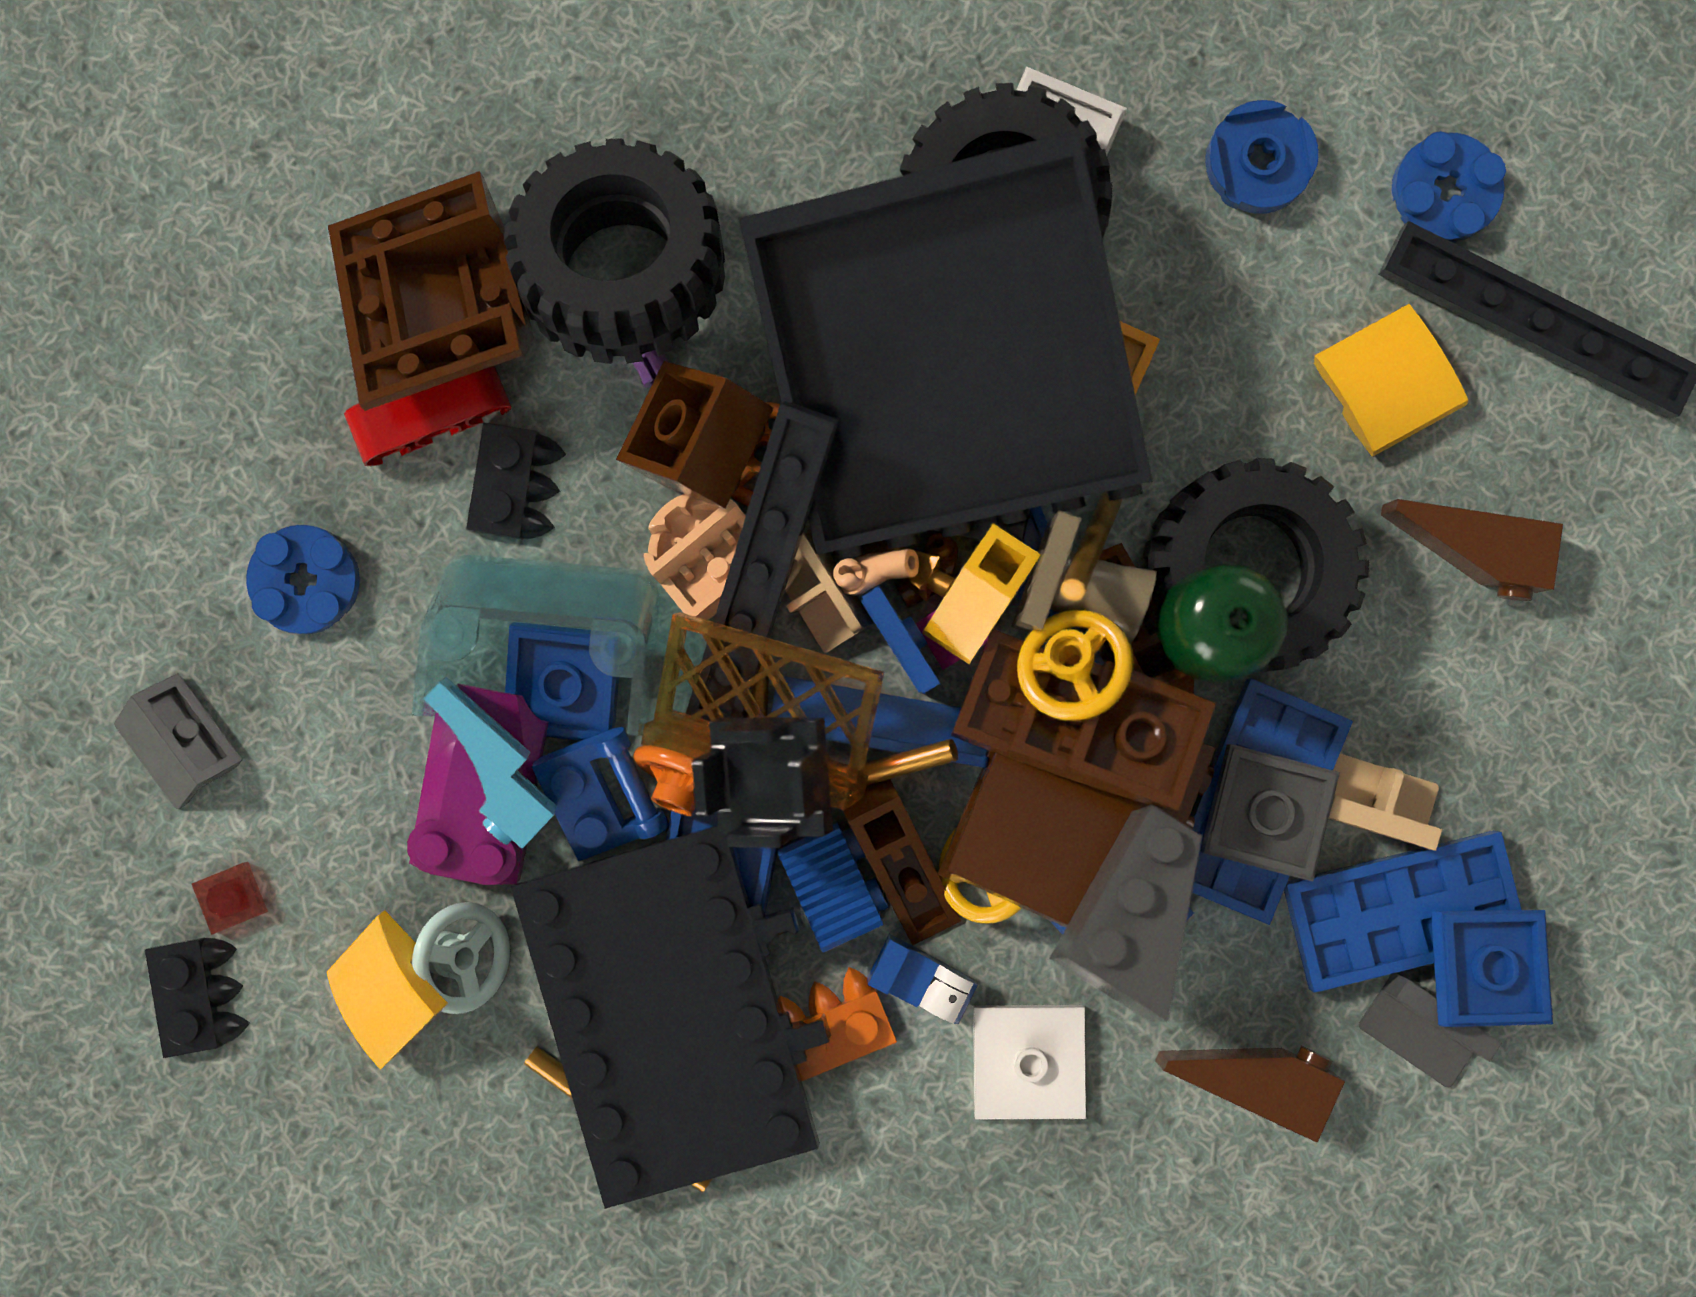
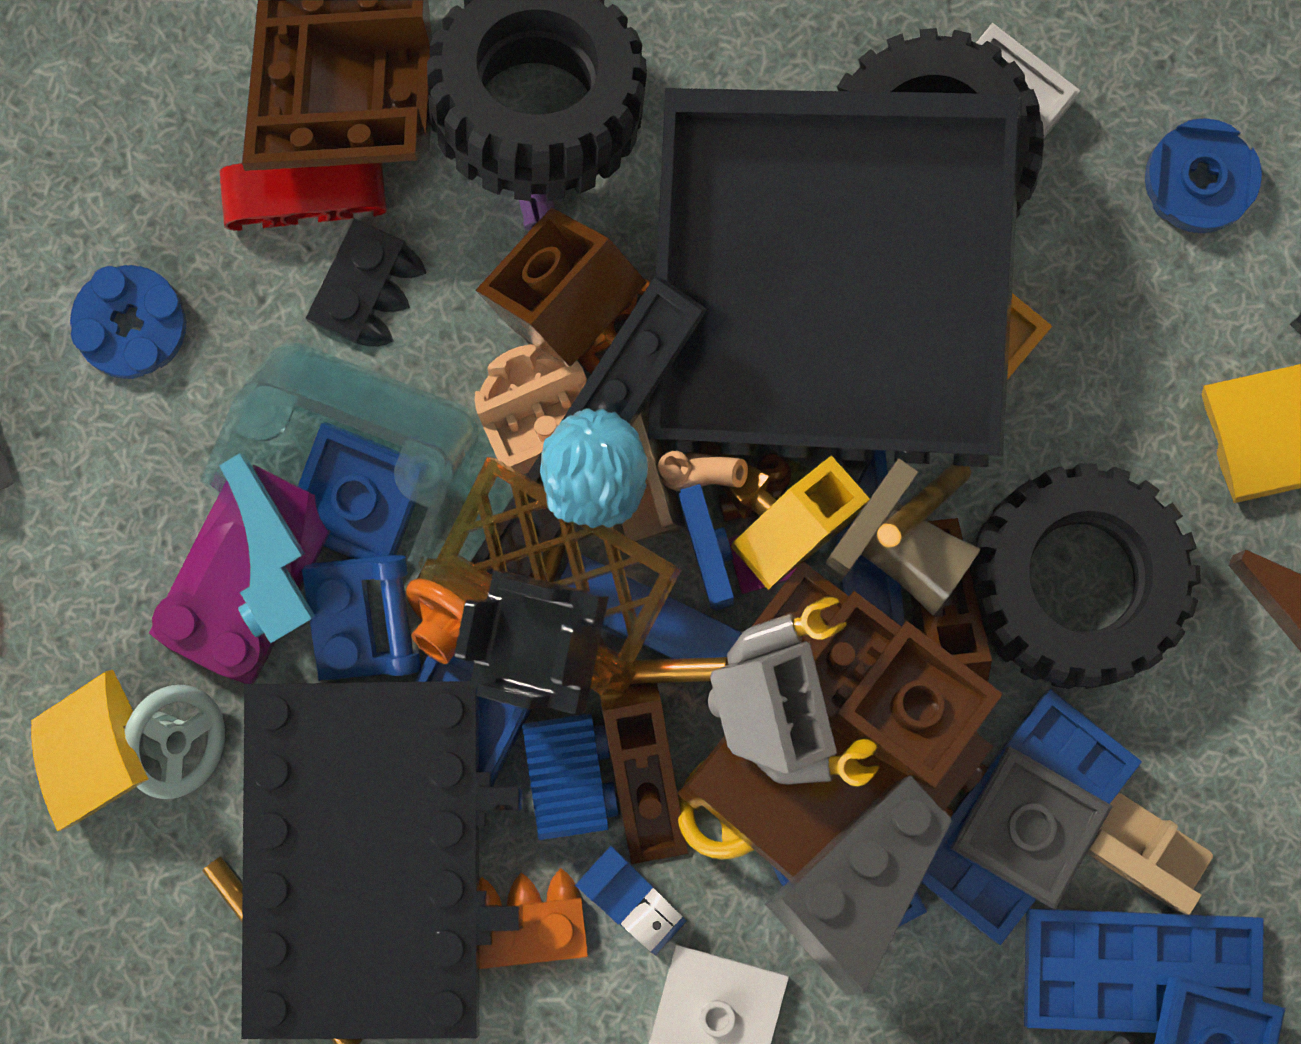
camera: 10 degrees right, 5 degrees down
(775, 600) = (594, 469): none -> medium azure hair
(1009, 775) = (776, 704): none -> light grey torso
(1071, 643) = (867, 589): yellow piece -> none
(1197, 626) = (1004, 622): dark green cylinder -> none

